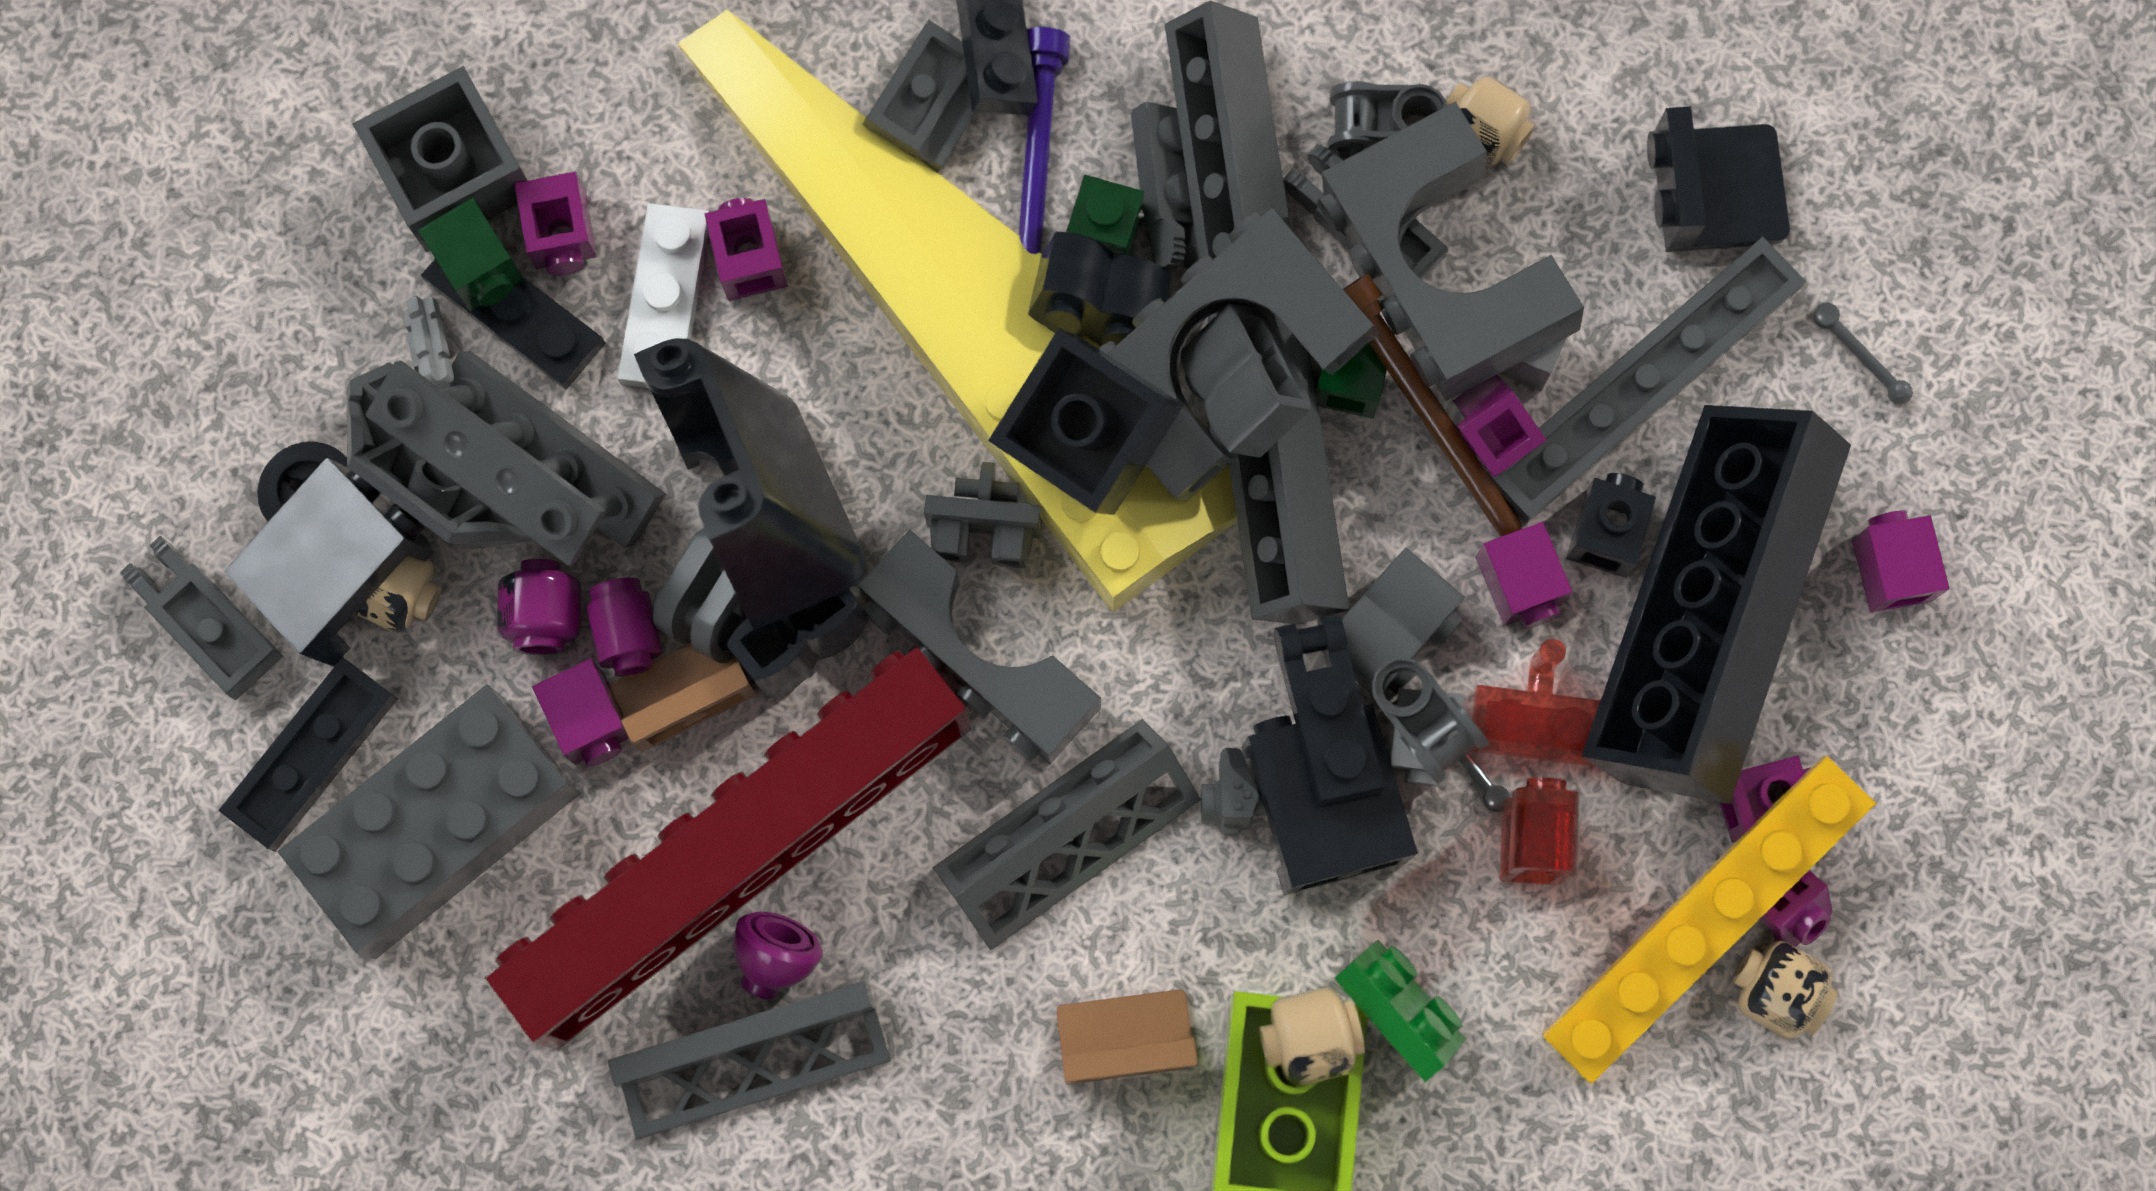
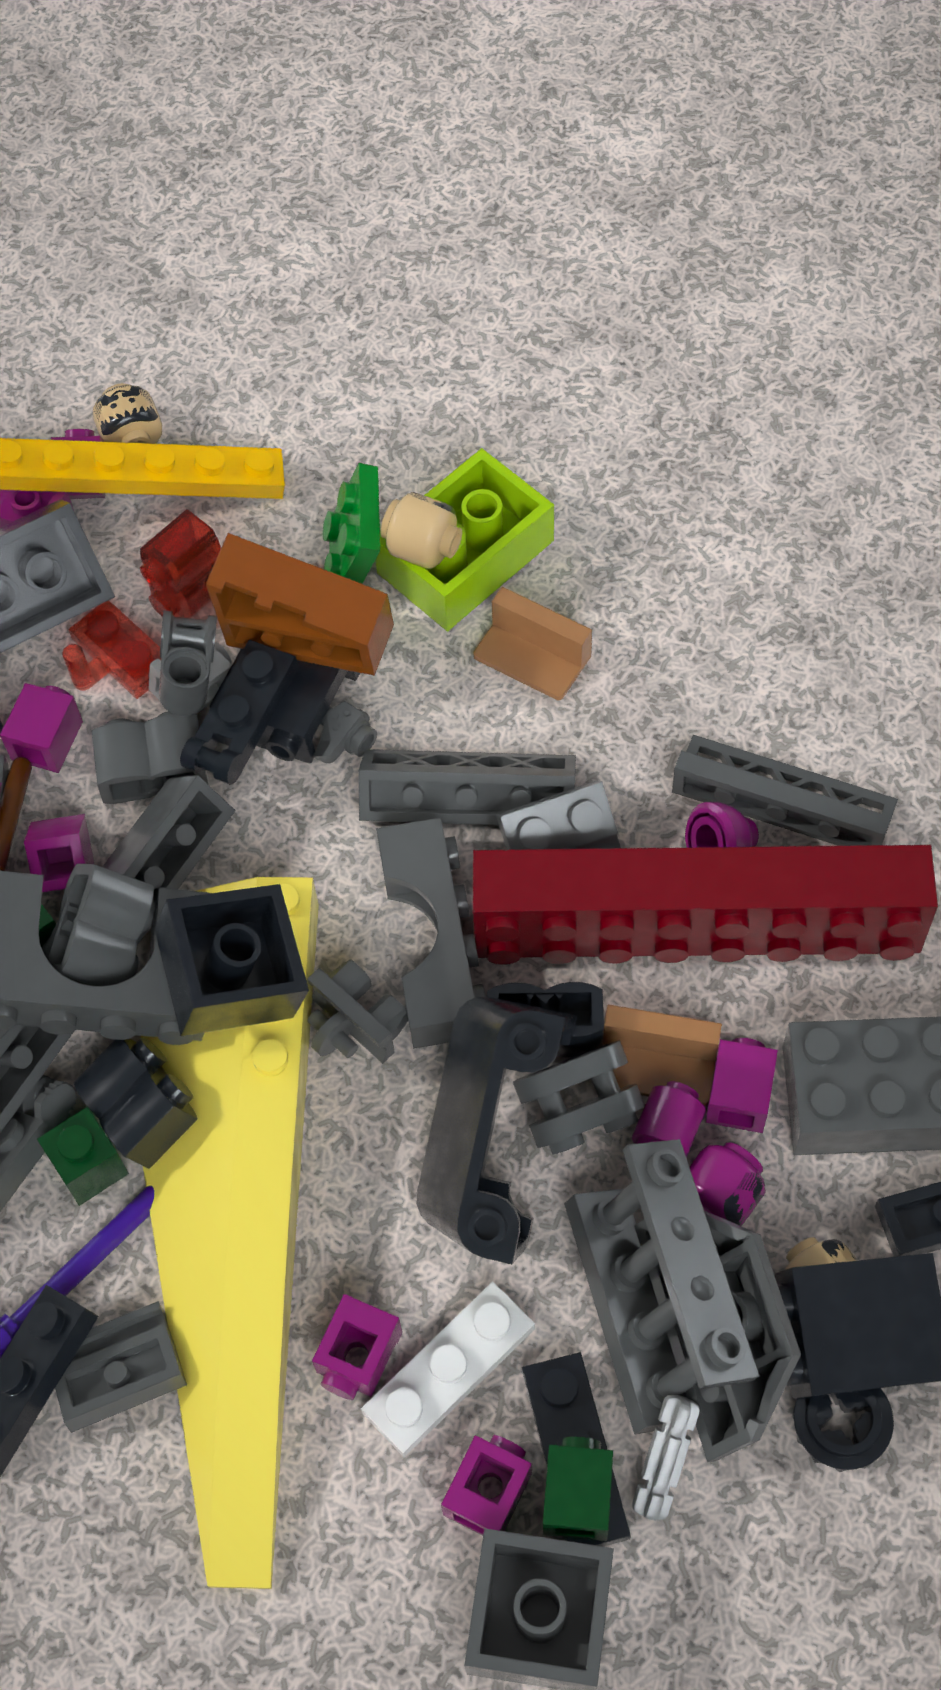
camera: 140 degrees left, 15 degrees down
(930, 838) = (562, 821): none -> plate
(1354, 848) = (297, 608): none -> dark orange wedge
(1378, 459) = (56, 847): none -> magenta brick

